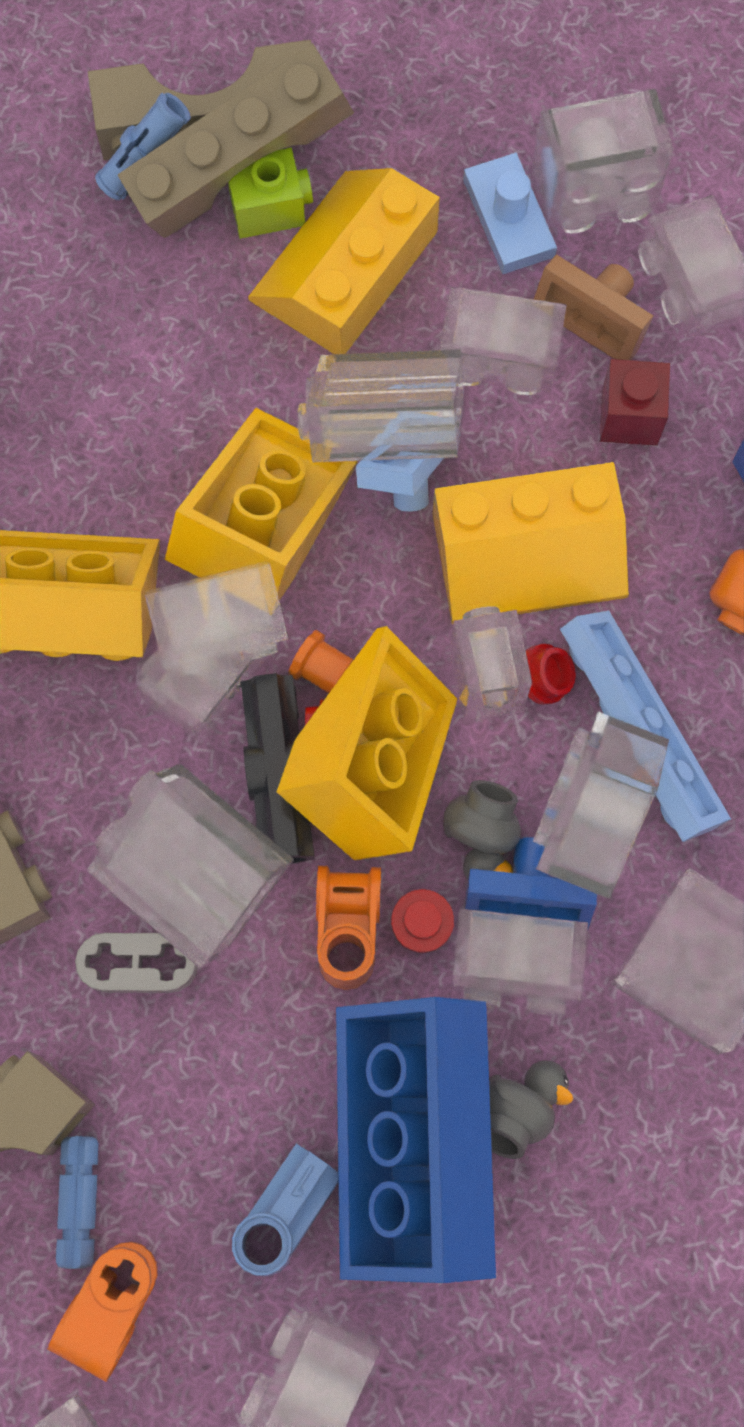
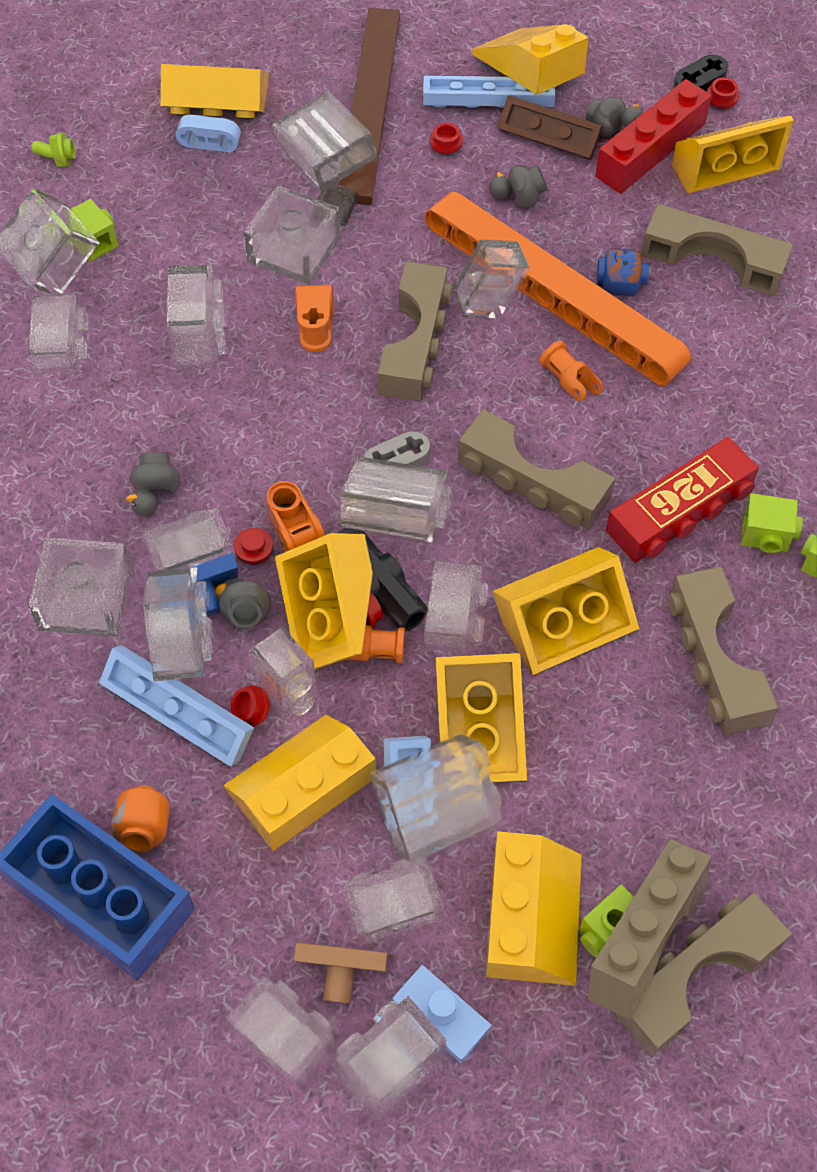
camera: 150 degrees right, 15 degrees down
(77, 1202) = (357, 349): medium blue axle -> none
(154, 129) = (713, 897): medium blue pin -> none
(217, 618) = (456, 606): clear brick -> none
(287, 1205) = (250, 385): medium blue piece -> none
(414, 1142) = (199, 430): blue brick -> none
(634, 402) = (278, 901): dark red brick -> none

